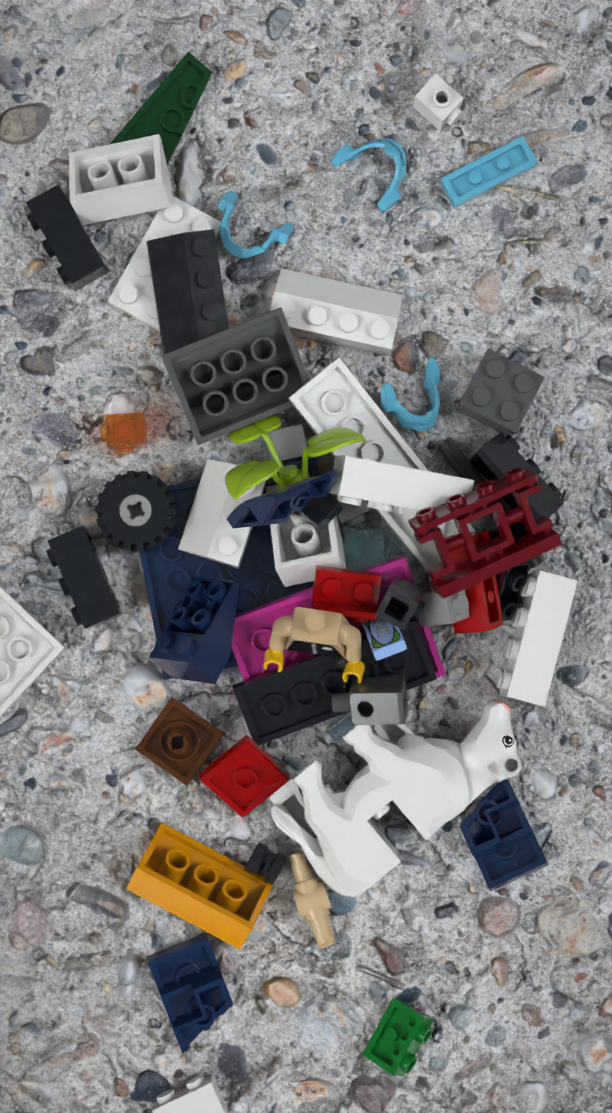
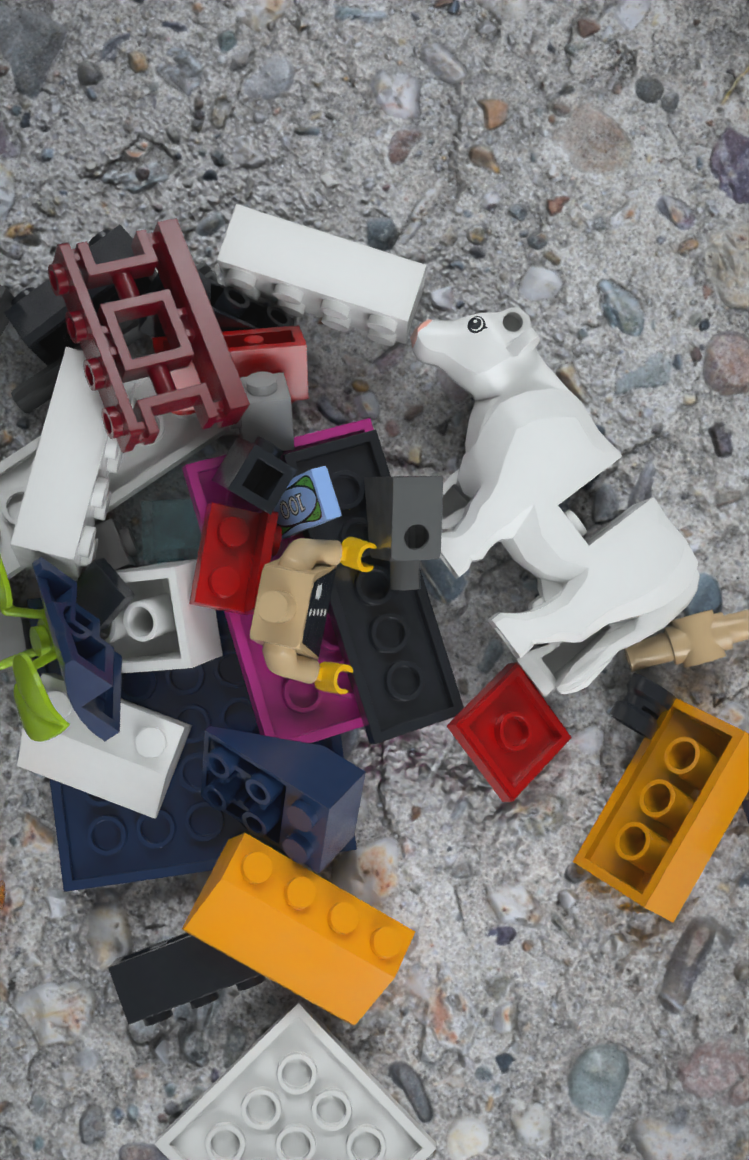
camera: 80 degrees left, 0 degrees up
(112, 645) = (298, 929): none -> light orange slope
(151, 519) = (105, 858): black wheel -> none
(179, 741) = (451, 829): reddish brown plate -> none
(502, 838) = (618, 349): dark blue slope -> none

